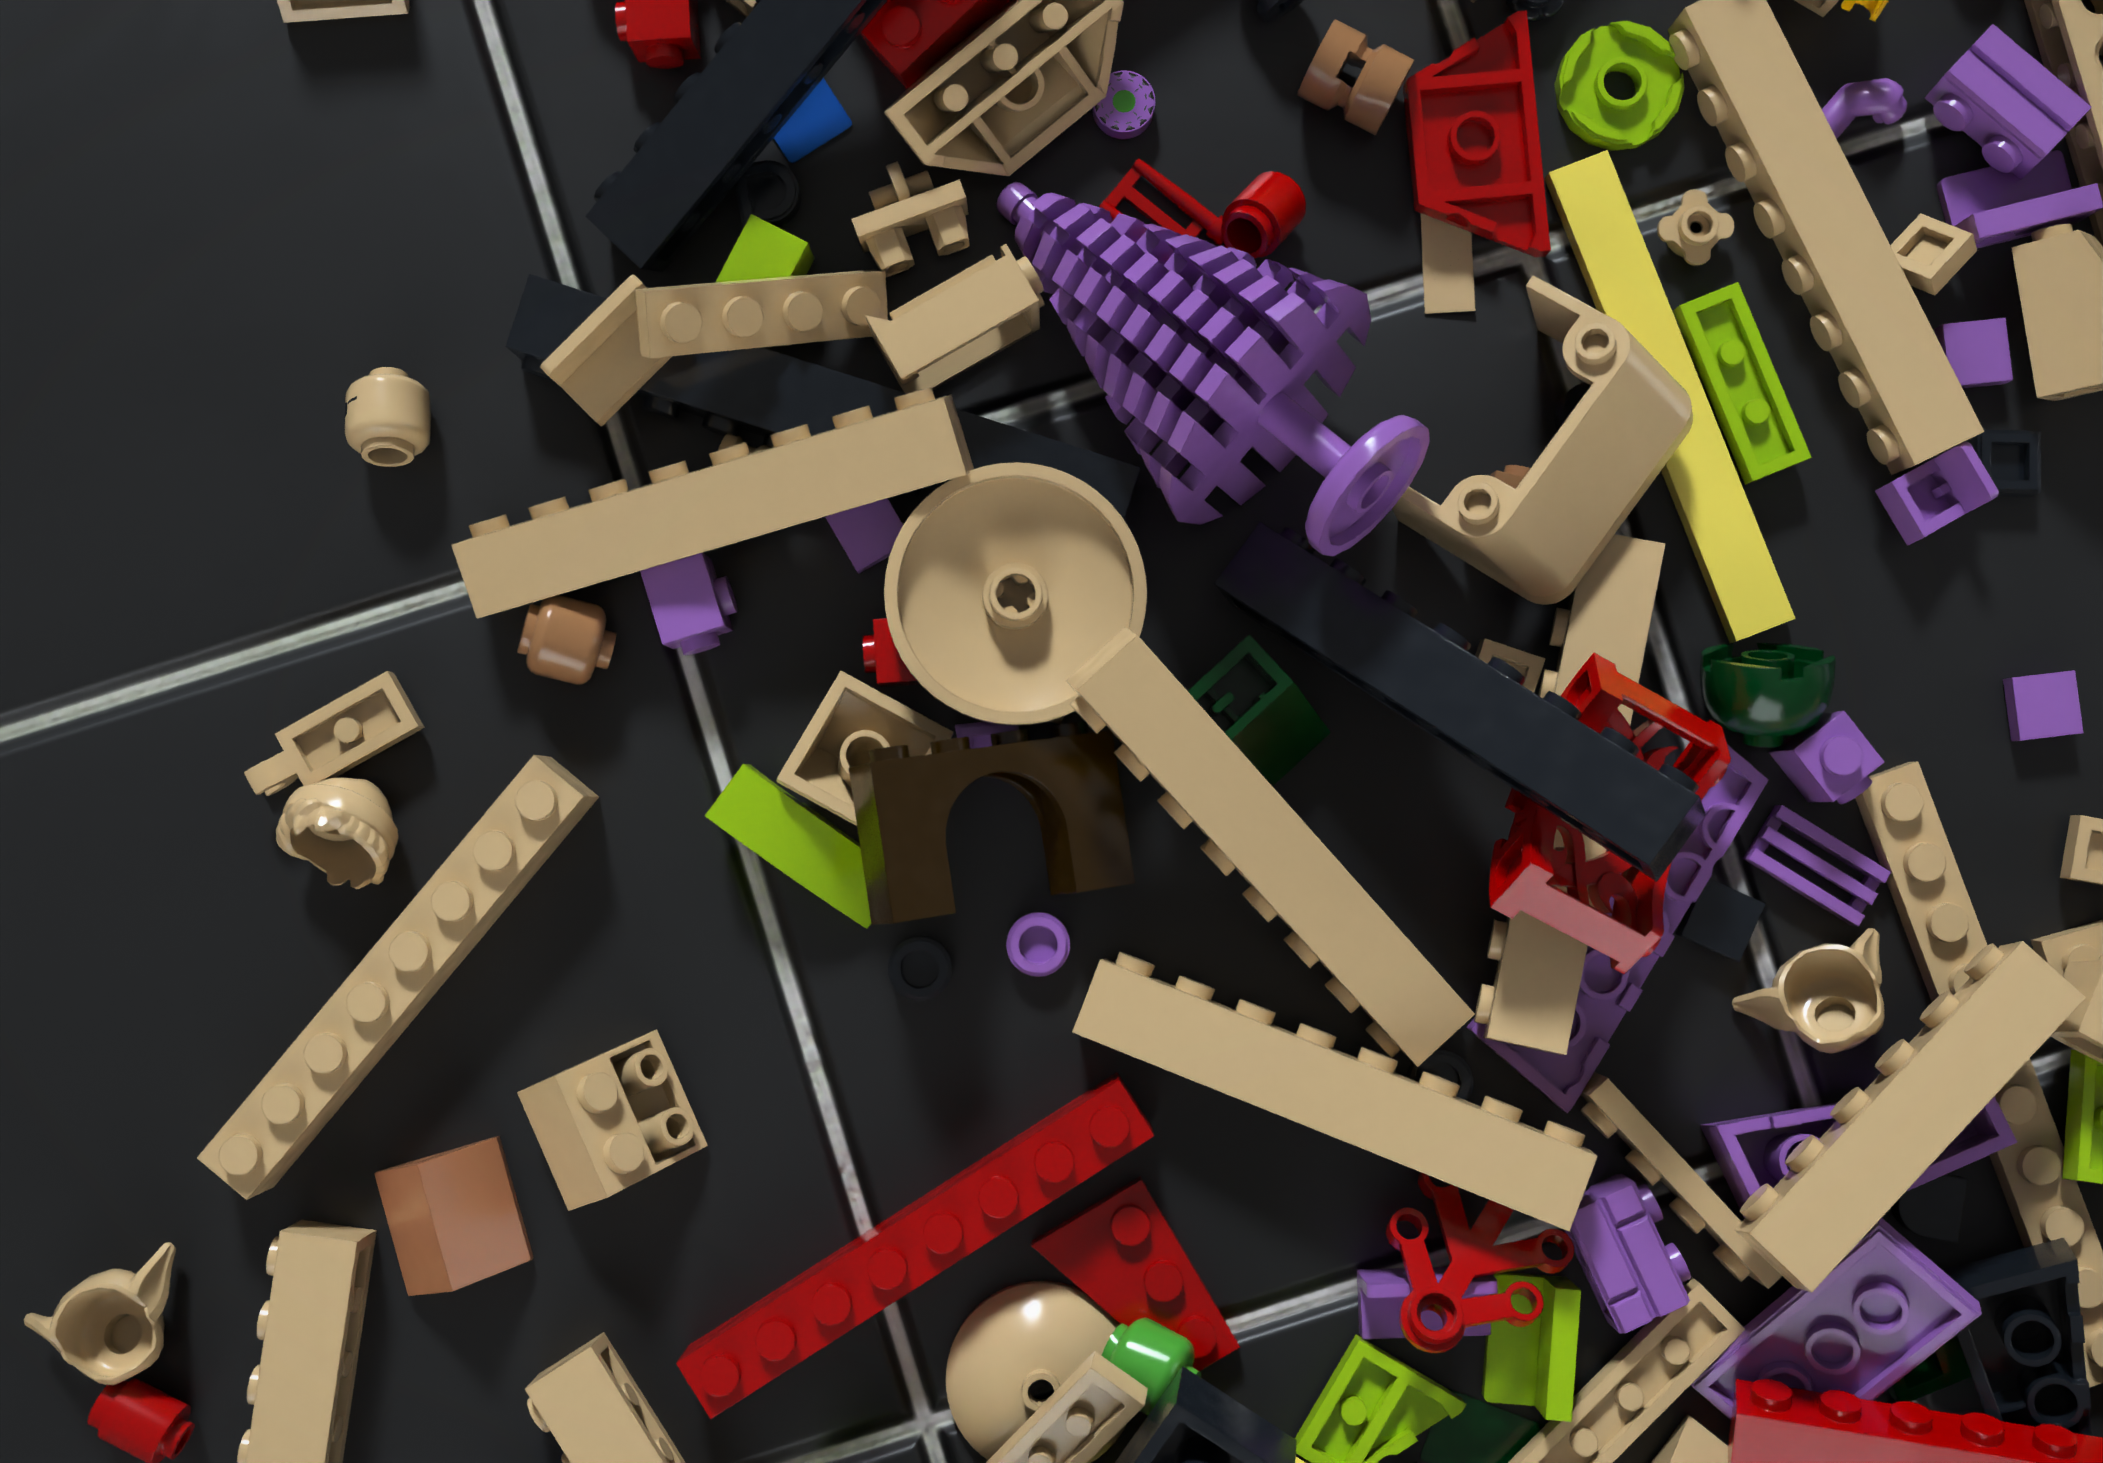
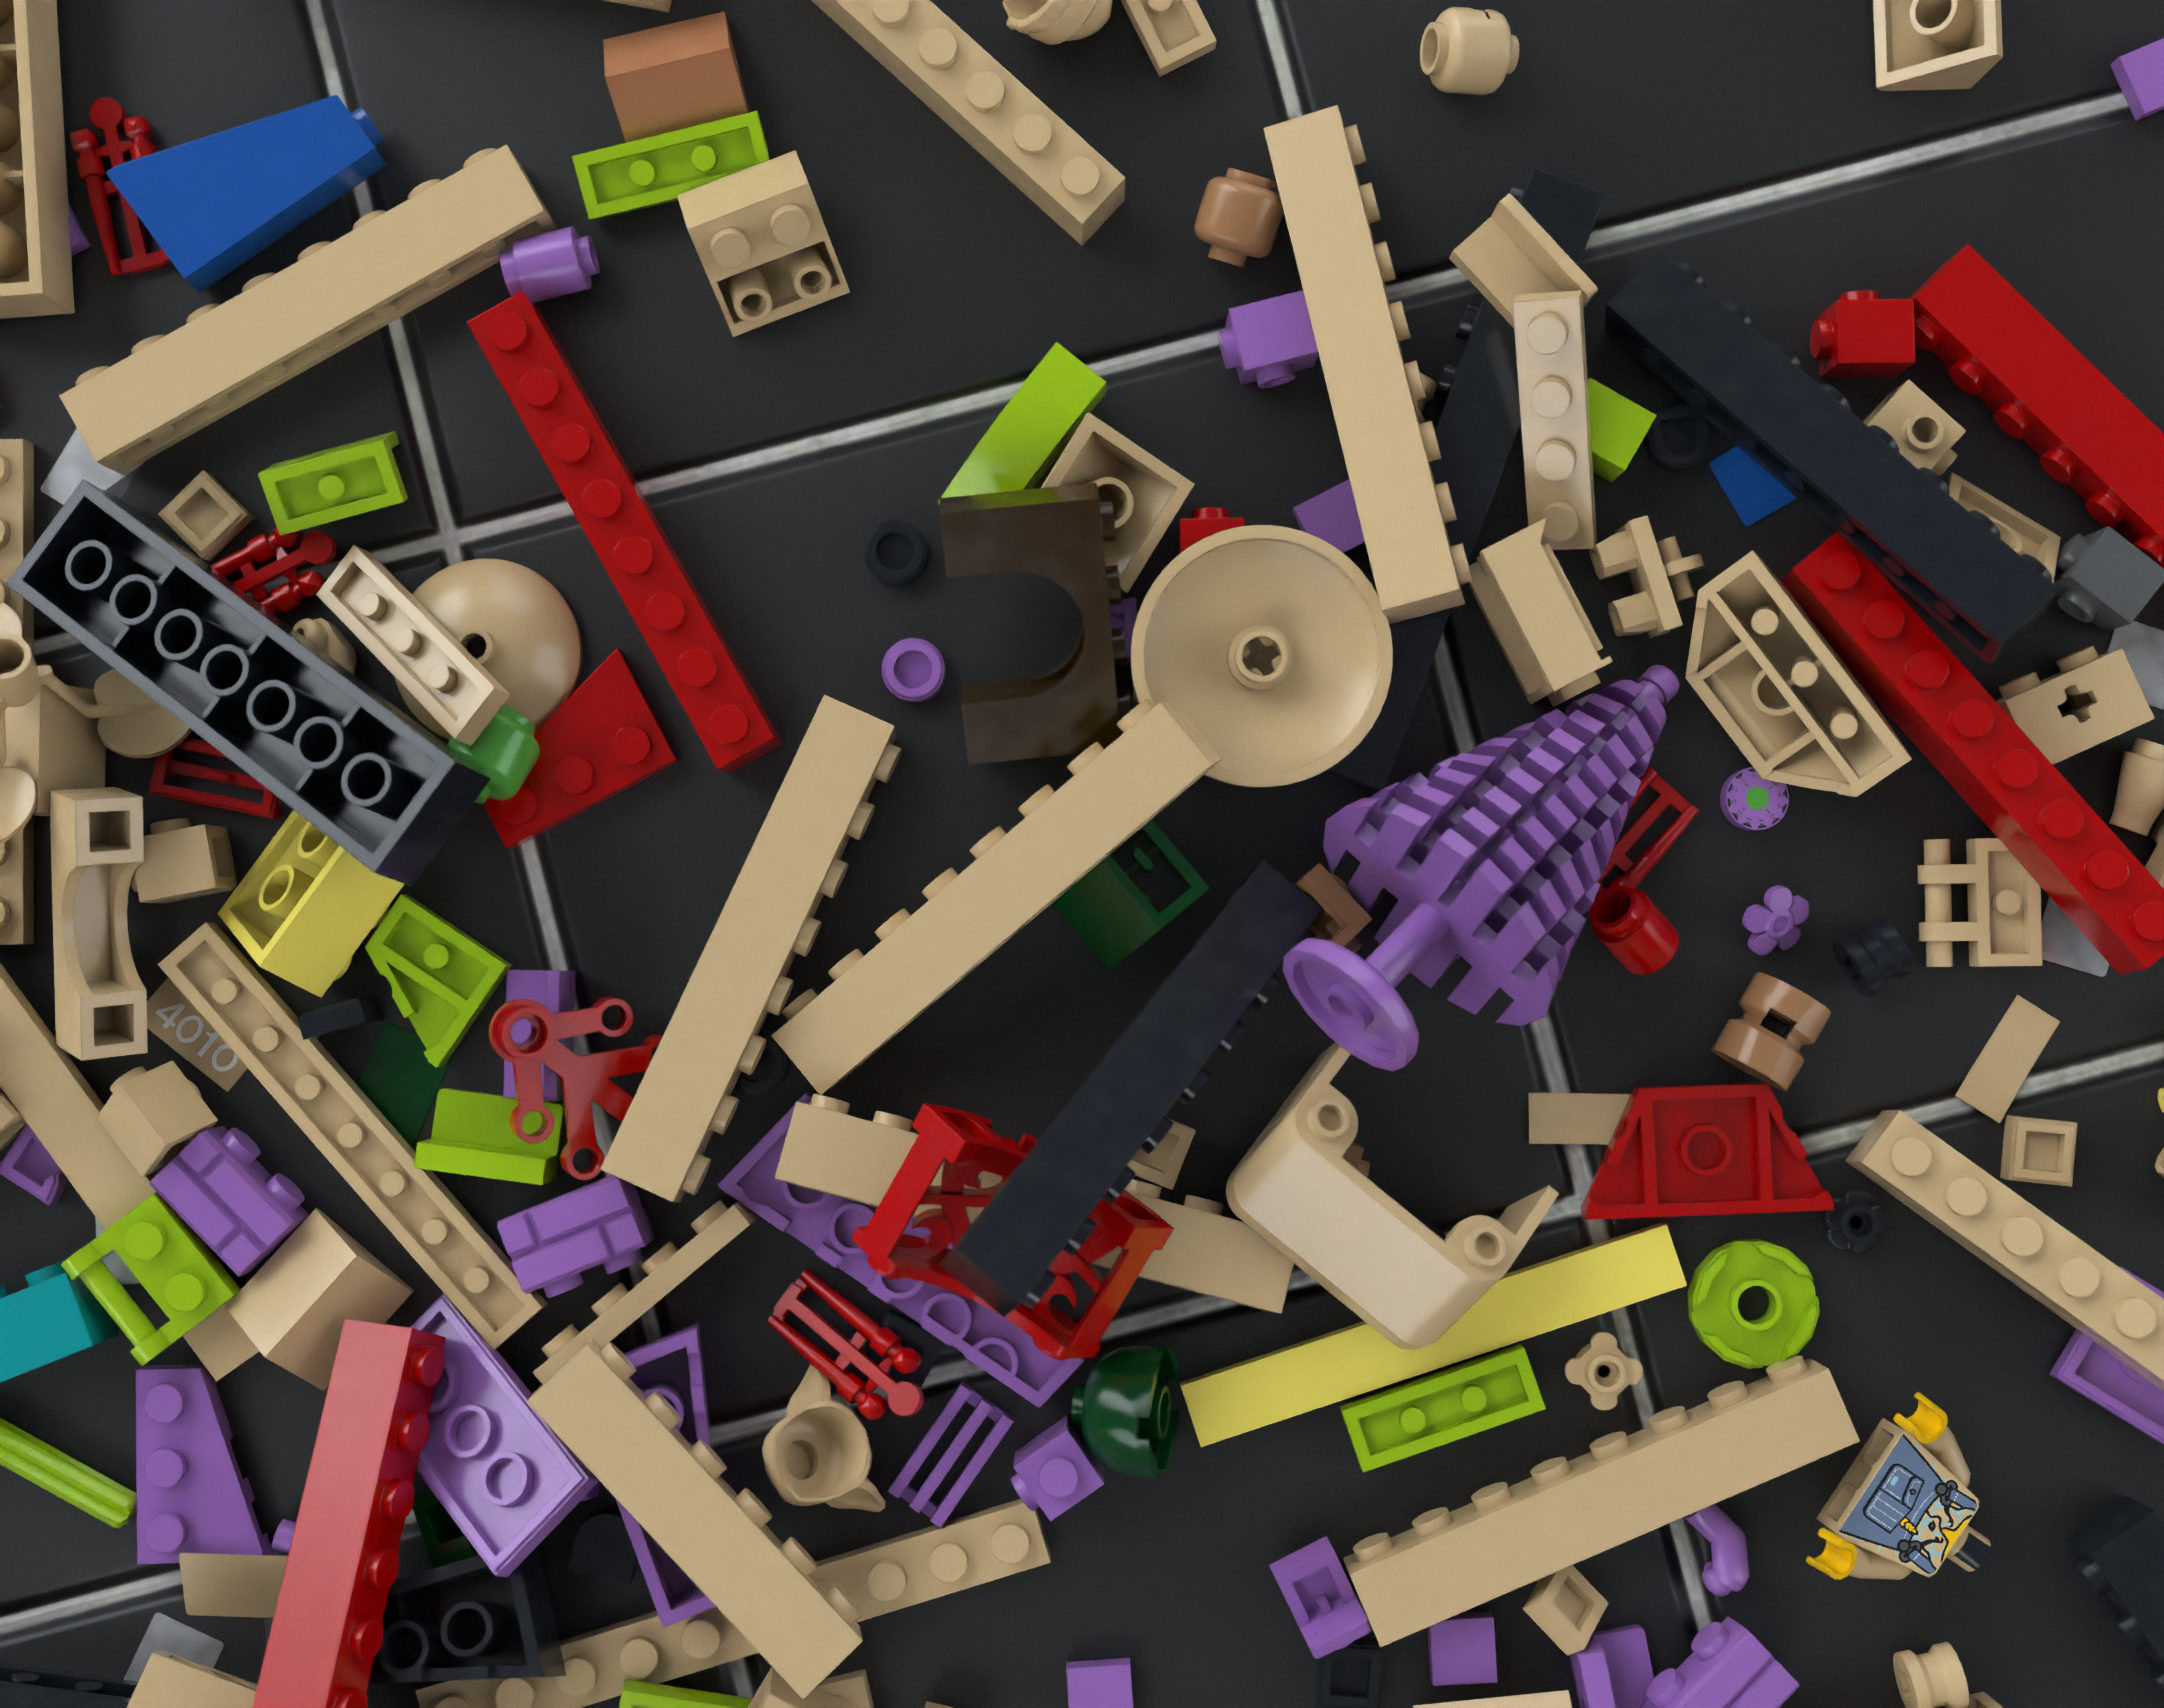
camera: 90 degrees right, 0 degrees up
(536, 1221) = (667, 164): none -> lime plate
(644, 1337) = (550, 264): none -> medium lavender brick
(1244, 78) = (1775, 921): none -> medium lavender plant
(1265, 503) = (1341, 914): none -> medium nougat bracket
(1770, 914) = (903, 1397): none -> red piece

